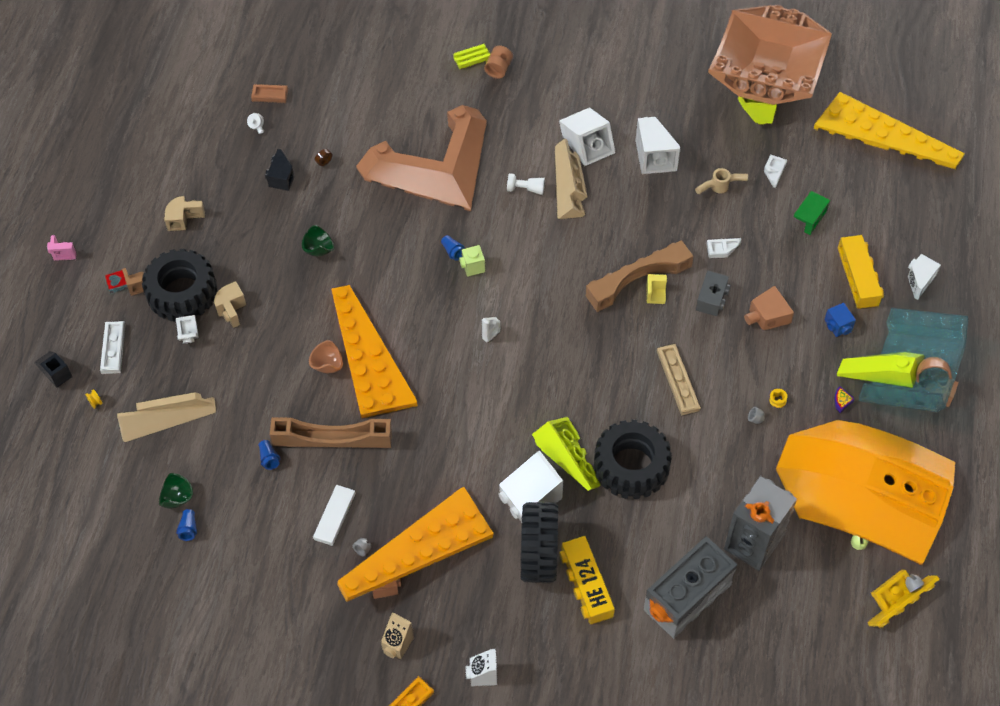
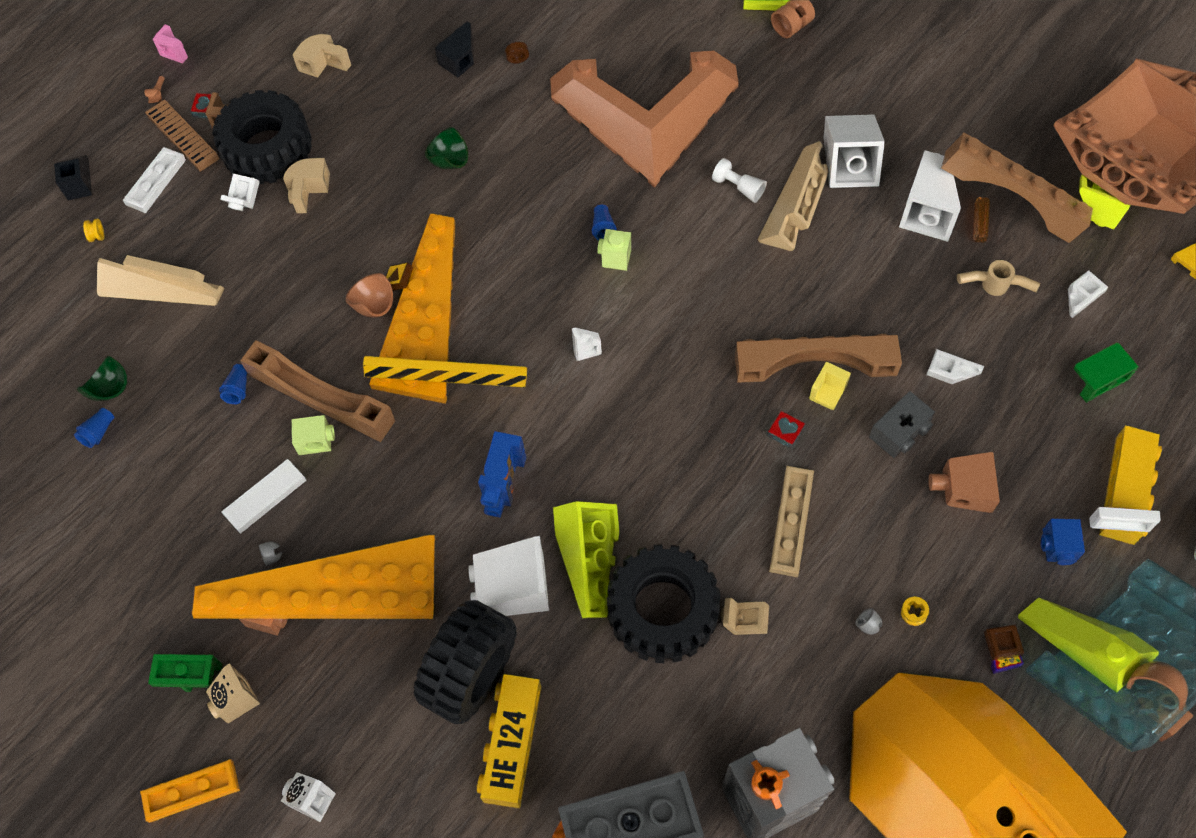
camera: 30 degrees right, 5 degrees up
(70, 289) = (154, 94): none -> nougat hand
(112, 308) = (182, 135): none -> medium nougat tile
(337, 336) = (399, 275): none -> reddish brown tile
(344, 462) = (312, 435): none -> yellowish green brick
(357, 638) = (183, 671): none -> green panel
(410, 383) = (444, 371): none -> yellow tile
(486, 428) = (497, 485): none -> blue hips
(644, 327) = (786, 429): none -> tile
(673, 113) = (975, 161): none -> medium nougat arch
(684, 445) = (745, 617): none -> tan bracket
(690, 148) = (981, 219): none -> clear orange axle
(837, 391) = (1004, 642): none -> reddish brown tile
(868, 290) = (1124, 519): none -> white tile

